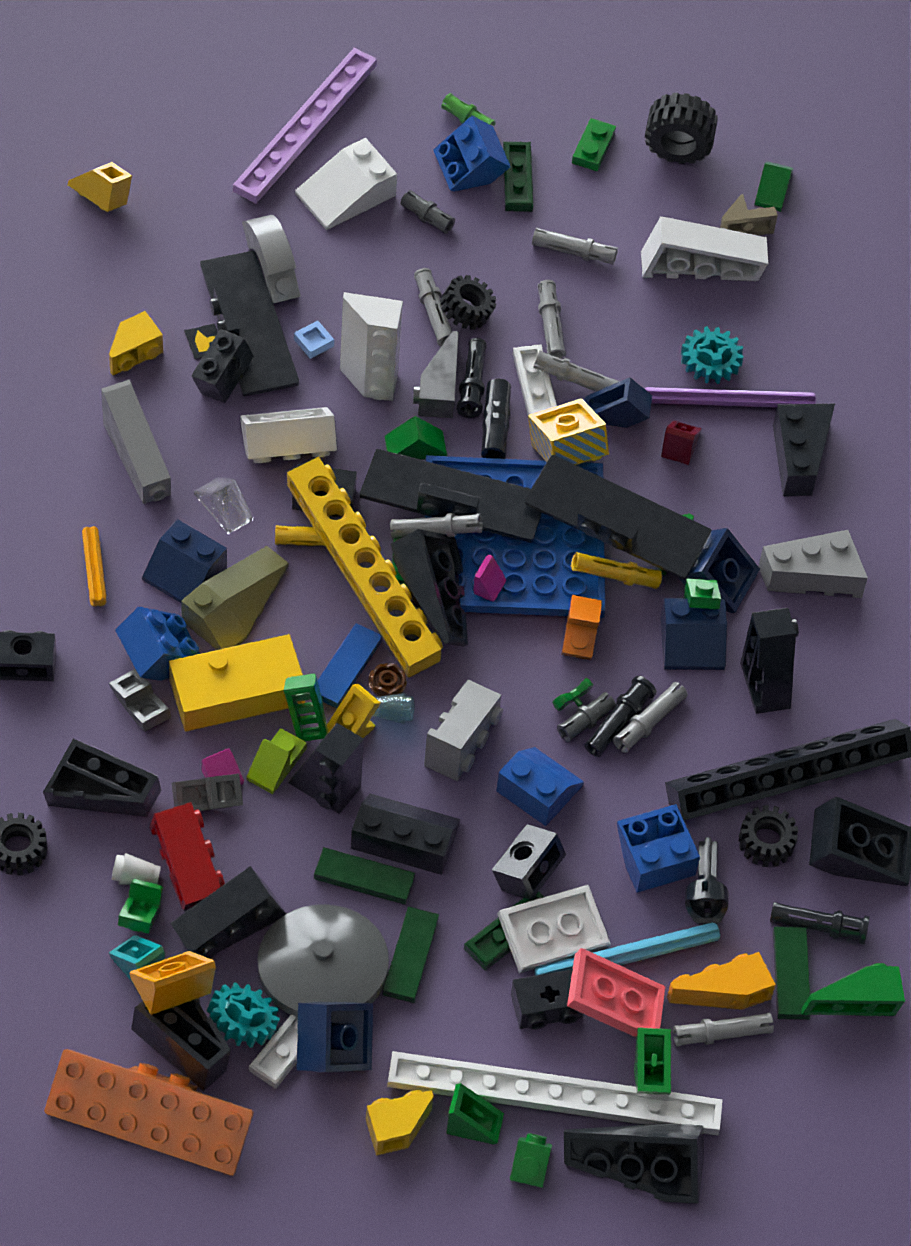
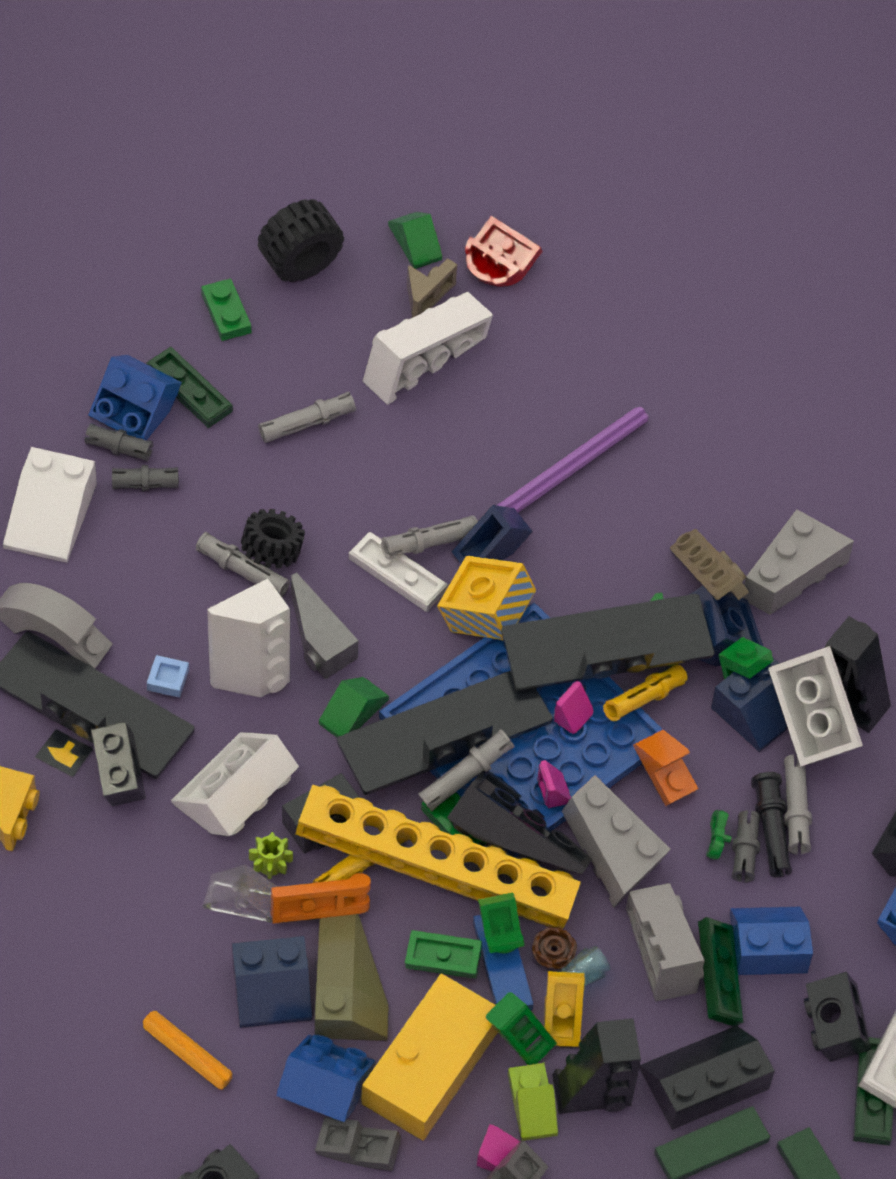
camera: 40 degrees left, 0 degrees up
(135, 442) = (113, 901): light grey slope -> none
(264, 491) = (271, 855): none -> lime gear
(265, 538) = (321, 899): none -> orange plate
(311, 630) = (443, 954): none -> green plate
(362, 635) = (501, 923): none -> green bracket
(434, 178) = (119, 442): none -> dark grey pin
(463, 110) = (85, 358): bright green pin -> none
(472, 386) = (351, 615): black pin -> none
(479, 778) = (720, 972): none -> dark green tile
(494, 645) = (614, 838): none -> light grey wedge
(496, 419) = (403, 631): black axle -> none
(550, 311) = (348, 495): light grey pin -> none
(553, 542) = (573, 708): none -> dark pink slope
(680, 441) = (574, 532): dark red slope -> none
(712, 355) = (523, 433): teal gear -> none
(713, 656) = (815, 706): none -> white slope
(747, 523) = (709, 566): none -> dark tan bracket
(799, 443) = (677, 462): black wedge -> none
(820, 232) = (500, 254): none -> slope

